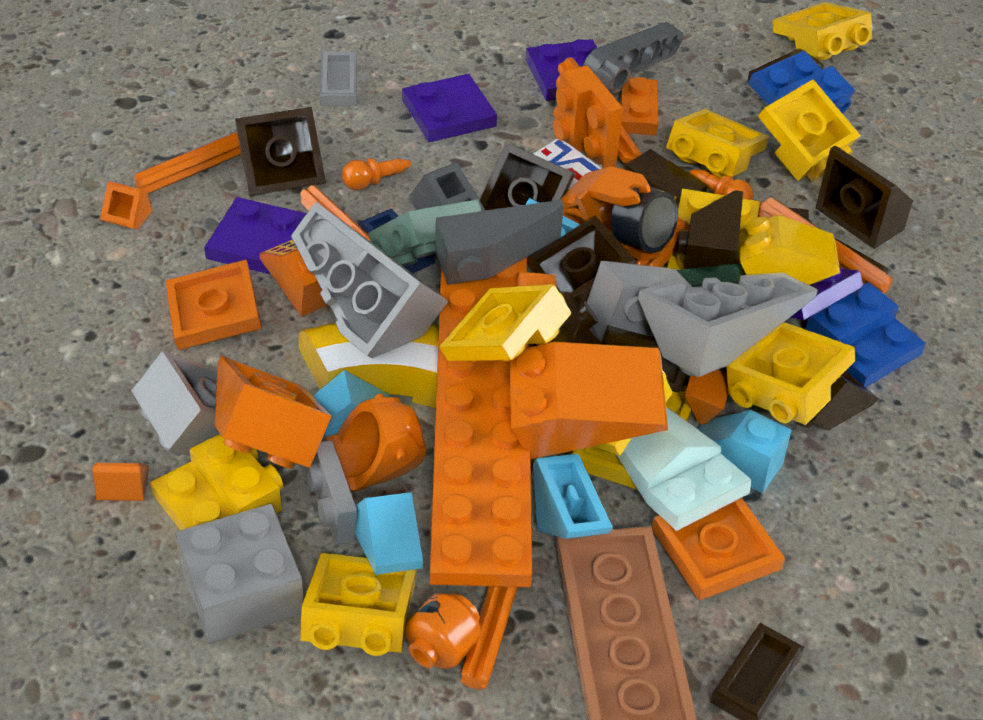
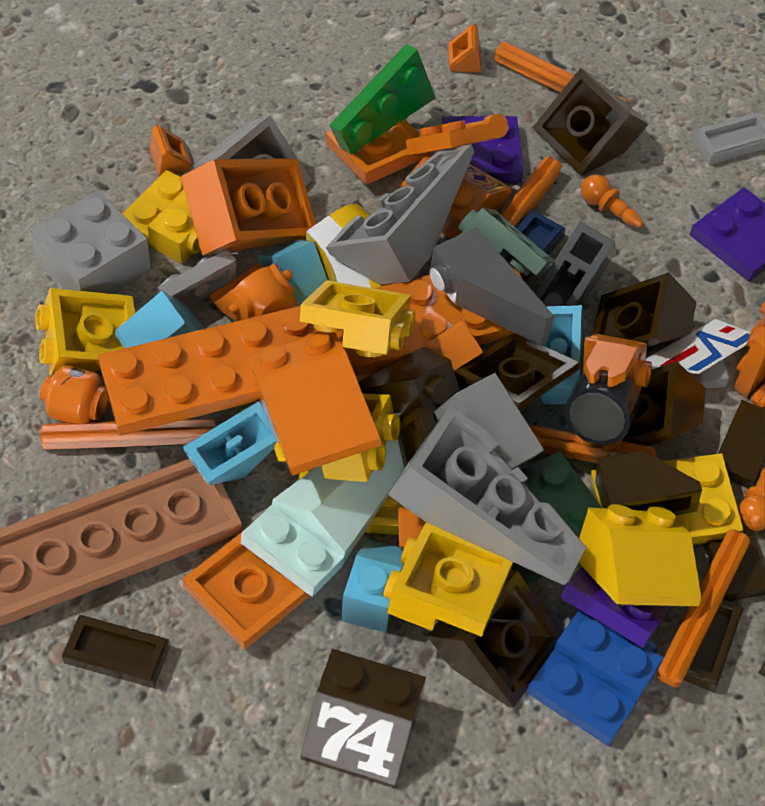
camera: 70 degrees right, 10 degrees up
(189, 264) = (385, 101): none -> green wing
(270, 226) = (457, 134): none -> orange plate
(877, 493) = (363, 718): none -> dark brown slope

